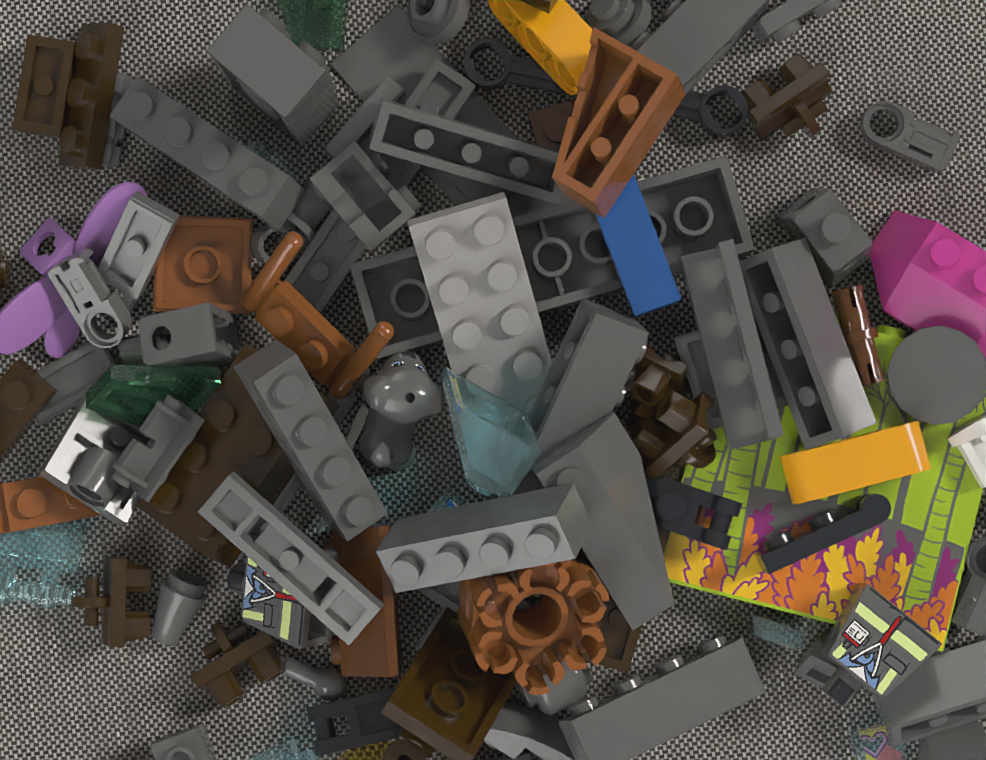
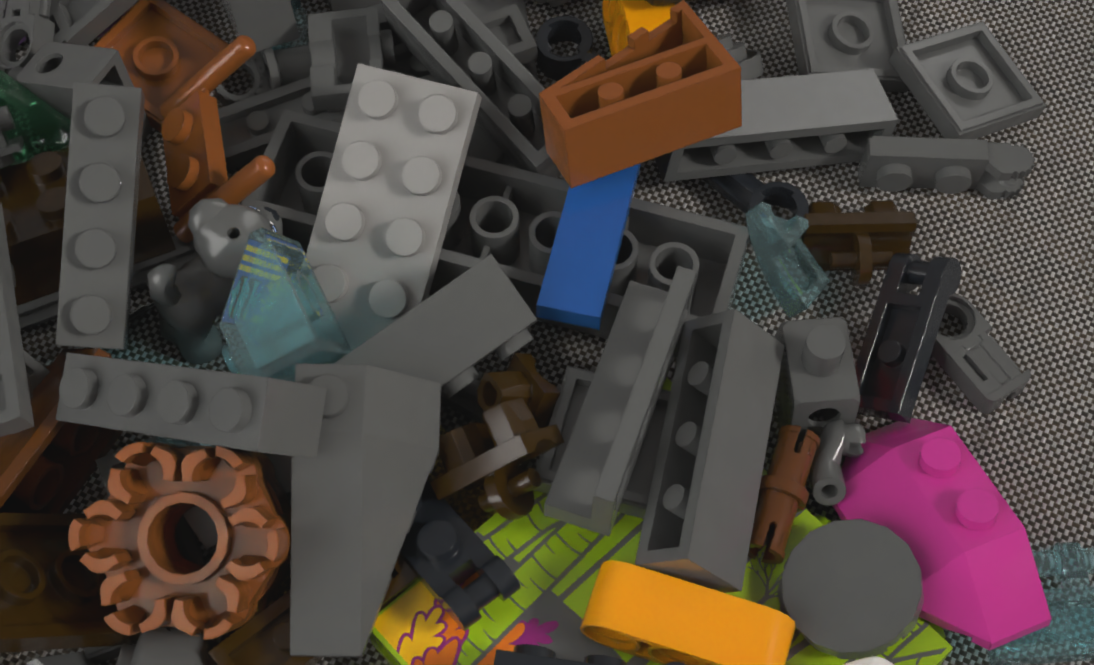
camera: 35 degrees right, 25 degrees down
(760, 155) = (785, 259): none -> clear light blue slope
(863, 158) = (903, 334): none -> black plate
(865, 273) = (825, 473): none -> dark grey arm

